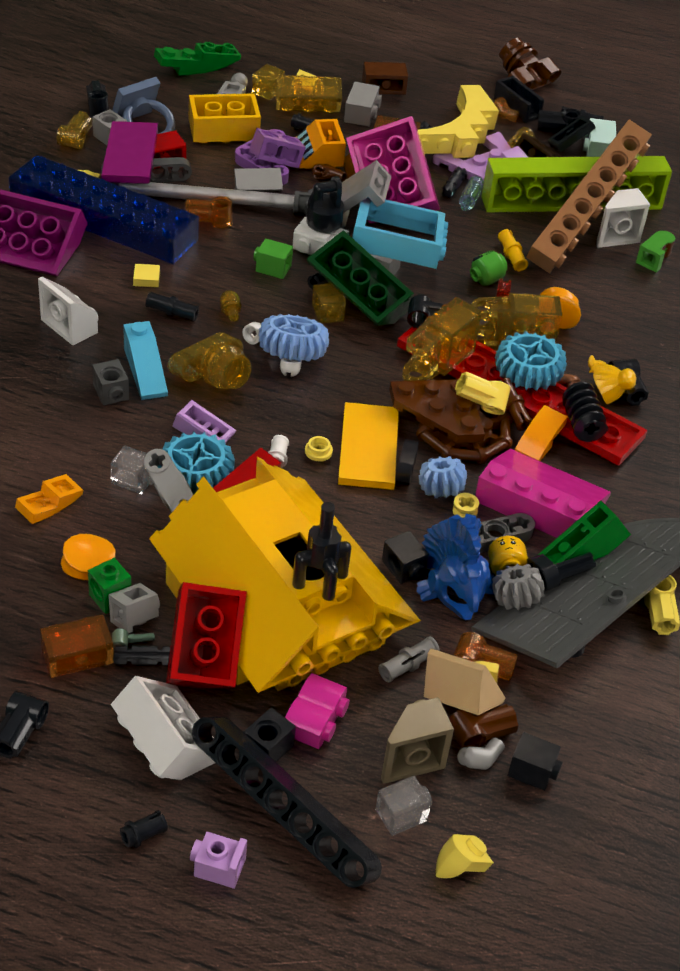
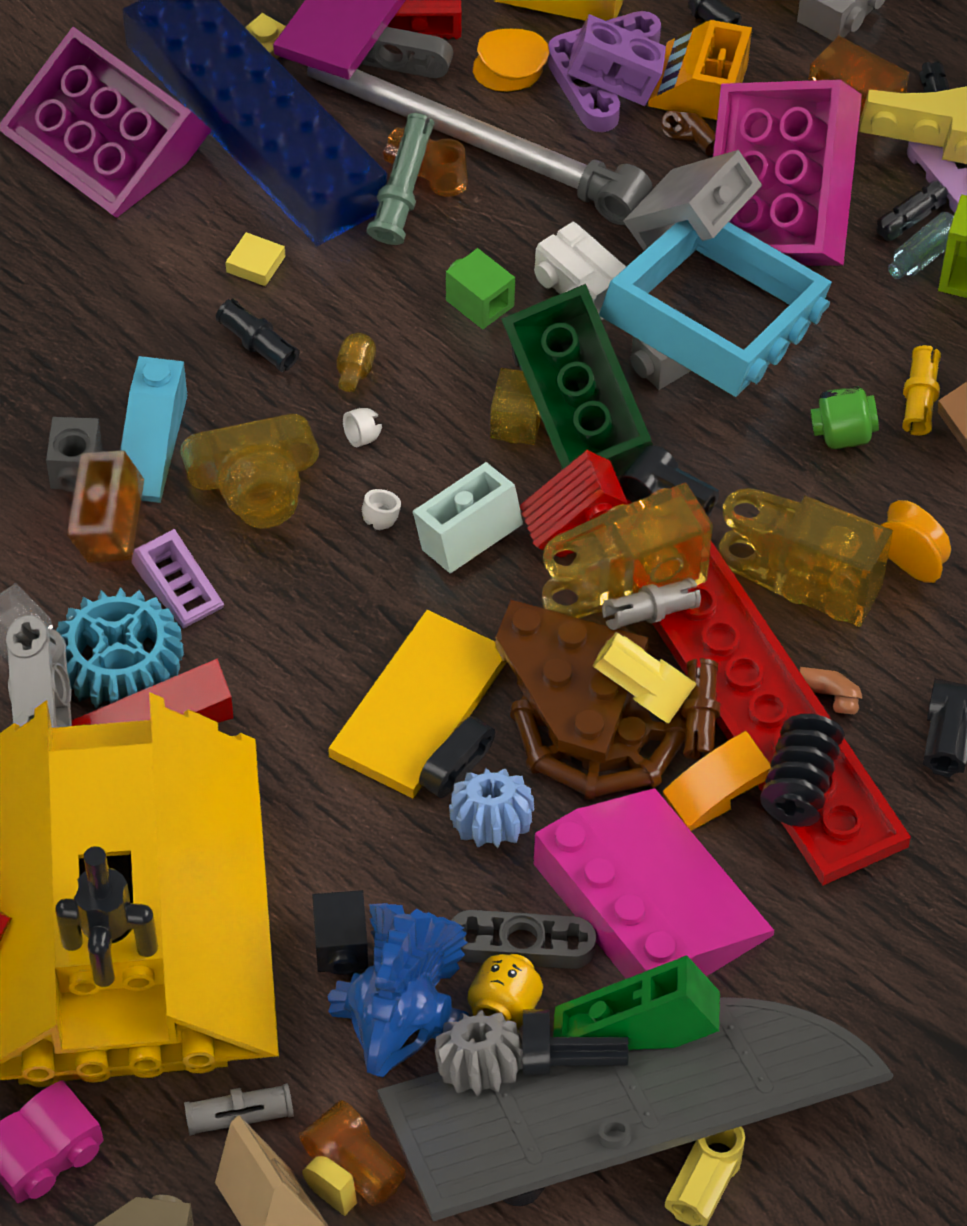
camera: 30 degrees right, 10 degrees up
(66, 312) = (79, 299): white slope -> none
(148, 398) = (106, 506): none -> clear orange brick
(206, 228) = (397, 196): none -> sand green pin
(219, 163) = (510, 59): none -> light orange piece
(258, 179) = (551, 115): light grey slope -> none
(279, 449) = (254, 676): white pin -> none
(293, 337) = (405, 458): light blue gear -> none
(318, 449) = (331, 674): light yellow plate -> none
(325, 210) = (598, 222): black piece -> none
(341, 353) = (468, 517): none -> light aqua brick
(391, 333) = (572, 498): none -> red brick
(461, 363) = (651, 603): none -> light grey pin
(466, 500) = (496, 881): light yellow bush -> none
(503, 288) = (847, 469): clear red bush -> none
(531, 360) = (776, 652): medium azure gear -> none
(610, 379) = (899, 717): yellow hair -> none

